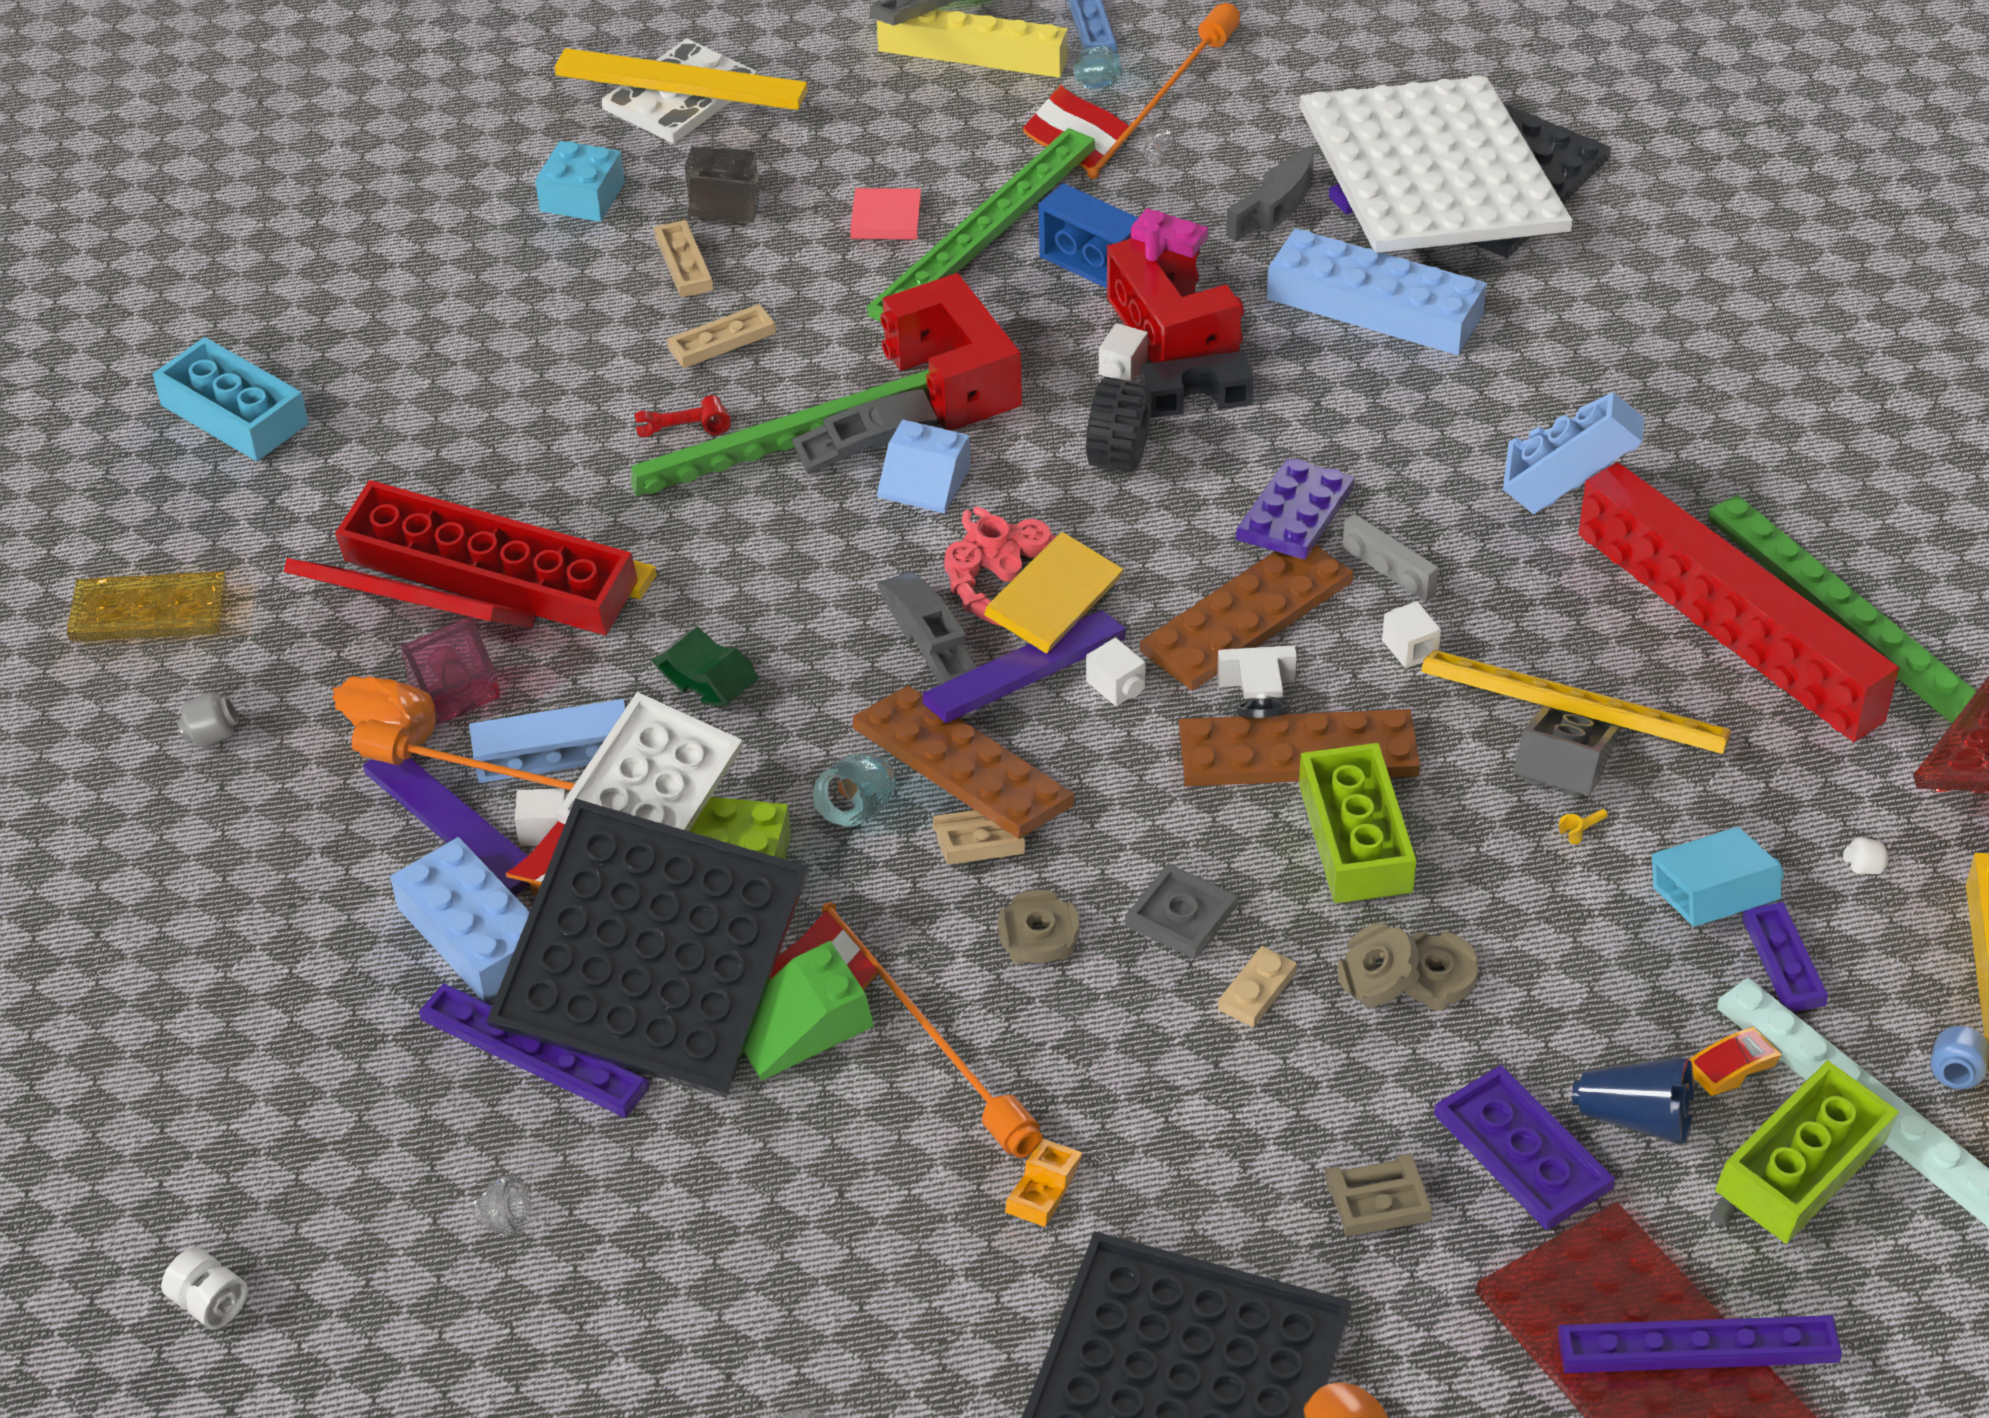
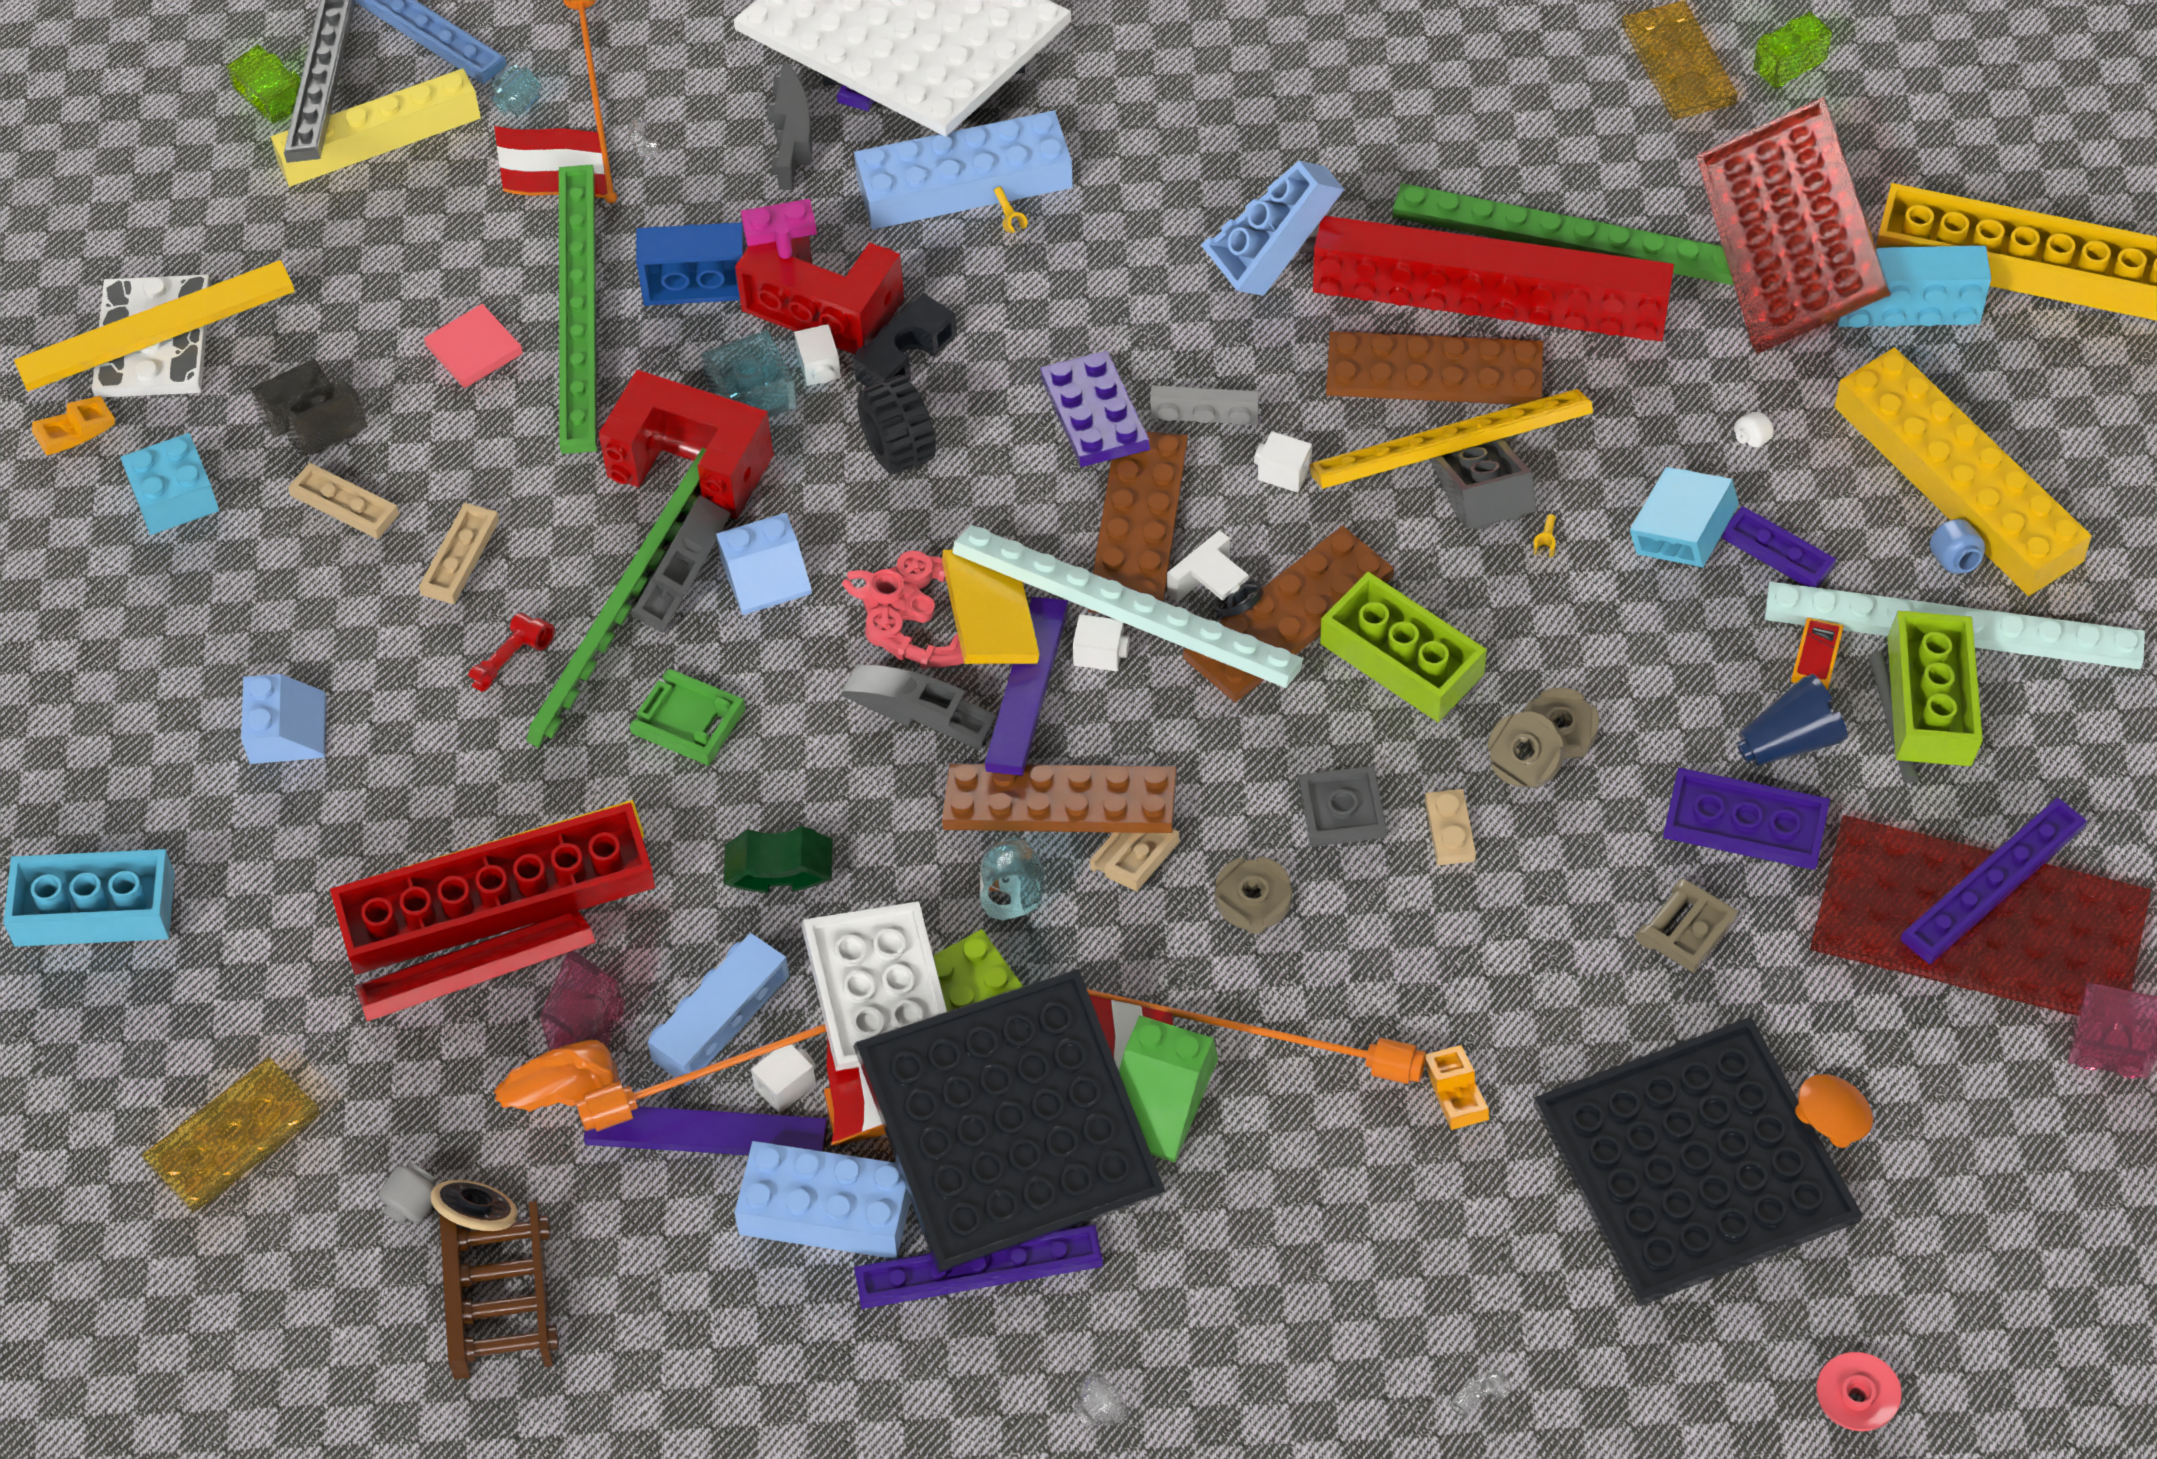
camera: 40 degrees left, 10 degrees up
(171, 796) = (462, 1312): none -> reddish brown fence
(236, 754) = (474, 1205): none -> wheel
(481, 367) = (282, 719): none -> light blue slope
(557, 116) = (81, 423): none -> light orange slope
(757, 539) = (683, 715): none -> bright green container
(1051, 337) = (751, 374): none -> clear light blue brick
(1163, 659) = (1128, 606): none -> light aqua plate
(1382, 337) = (1009, 212): none -> yellow hand
(1621, 645) = (1434, 368): none -> dark orange plate

